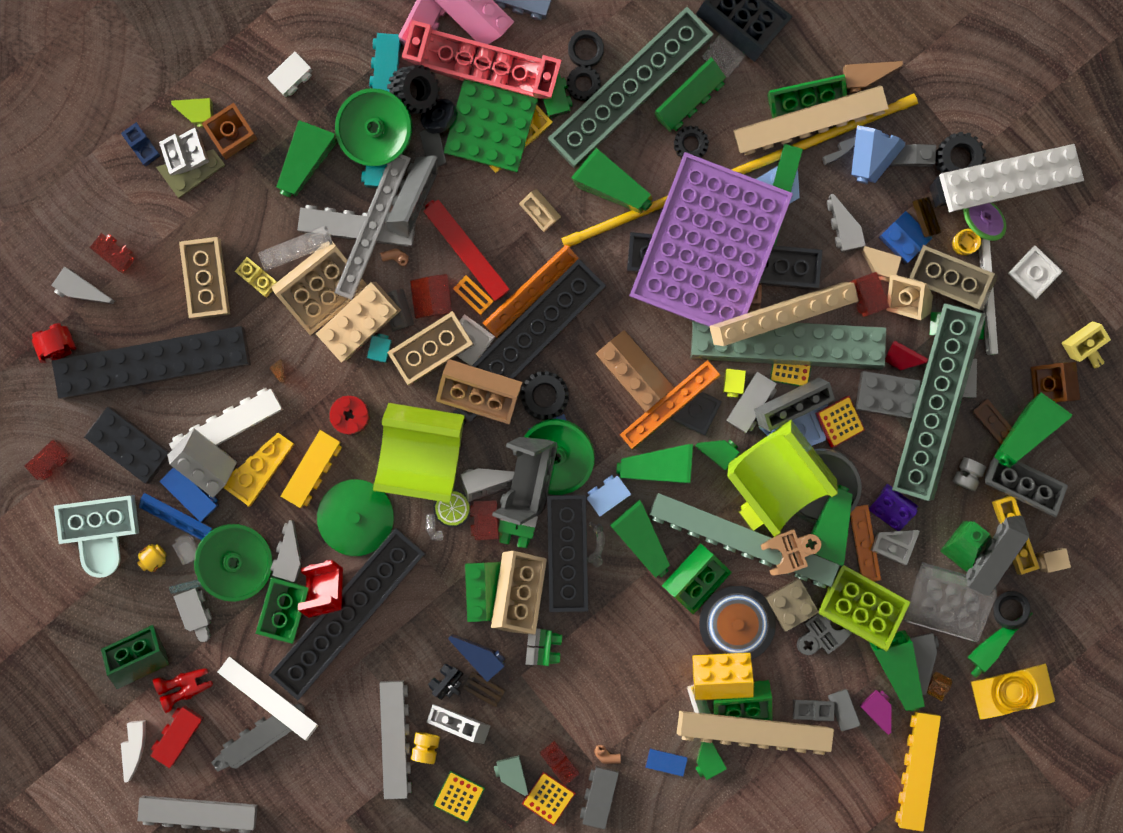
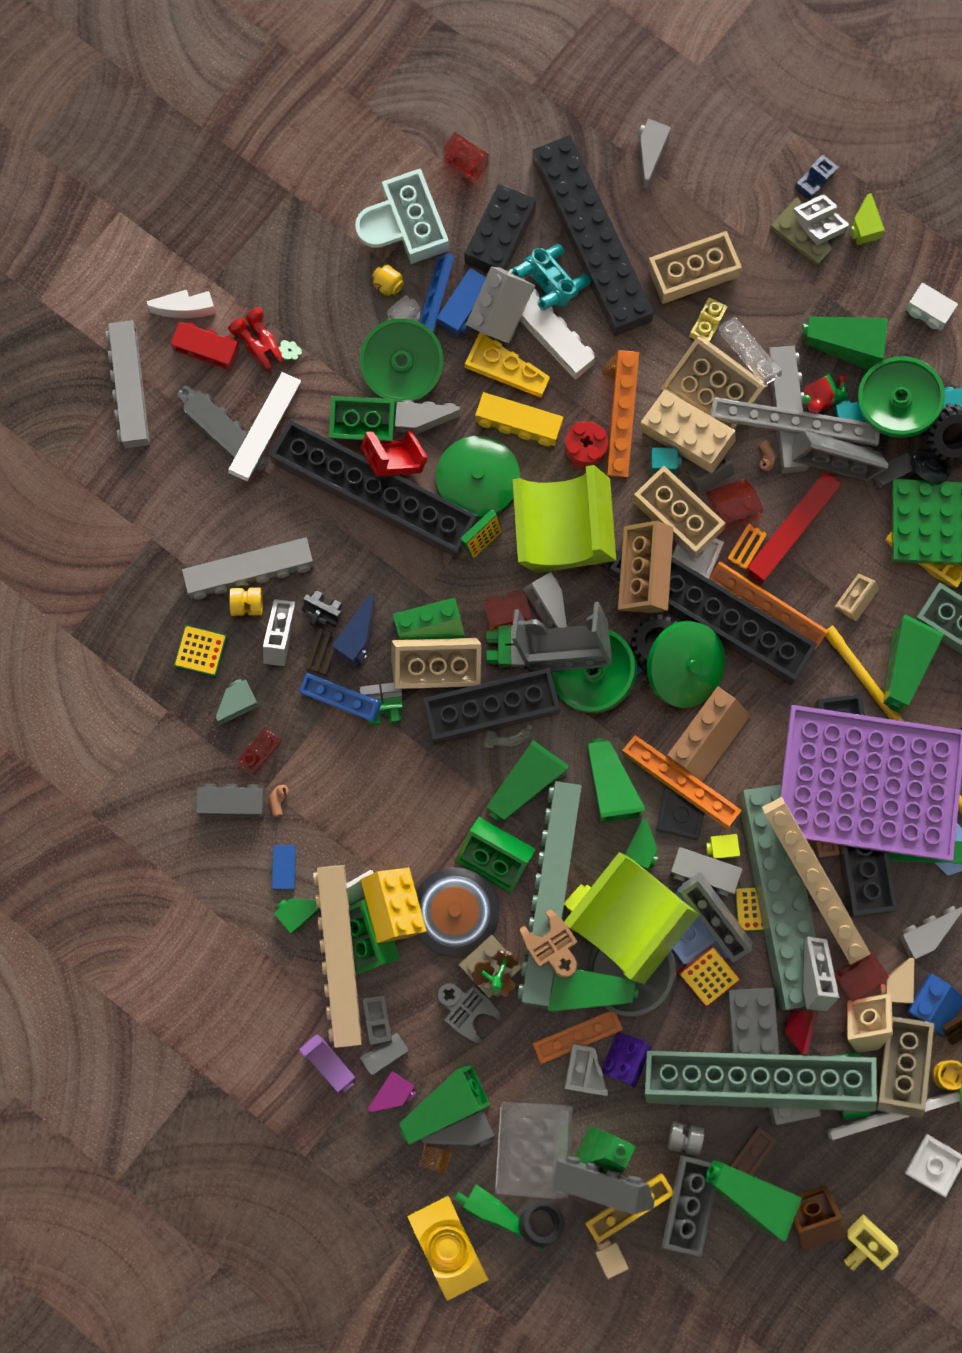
camera: 75 degrees right, 10 degrees down
(53, 343) = (589, 133): red brick -> none
(115, 255) = (696, 172): clear red brick -> none
(134, 657) = (279, 286): dark green slope -> none
(184, 410) = (551, 277): none -> teal piece
(184, 586) = (364, 319): clear light blue wheel -> none
(194, 613) = (339, 335): light grey hinge -> none
(195, 658) = (290, 350): none -> plant
(229, 131) = (855, 258): dark orange slope -> none
(328, 376) = (622, 414): none -> orange plate
(351, 192) = (823, 393): none -> red piece
(412, 527) = (482, 534): none -> tile
(431, 530) = (483, 557): clear arm -> none
(455, 512) = (509, 575): lime tile -> none
(530, 683) = (340, 697): none -> blue tile
(548, 798) = (218, 747): yellow tile -> none
(570, 376) = (686, 664): none -> green dish
(608, 495) = (564, 736): light blue brick -> none
(810, 599) = (500, 983): none -> reddish brown plant
(843, 759) = (328, 1063): none -> medium lavender arch
(863, 331) = (819, 978): none -> light grey slope
(864, 607) = (506, 1047): lime slope -> none
(918, 771) = (333, 1156): yellow brick -> none

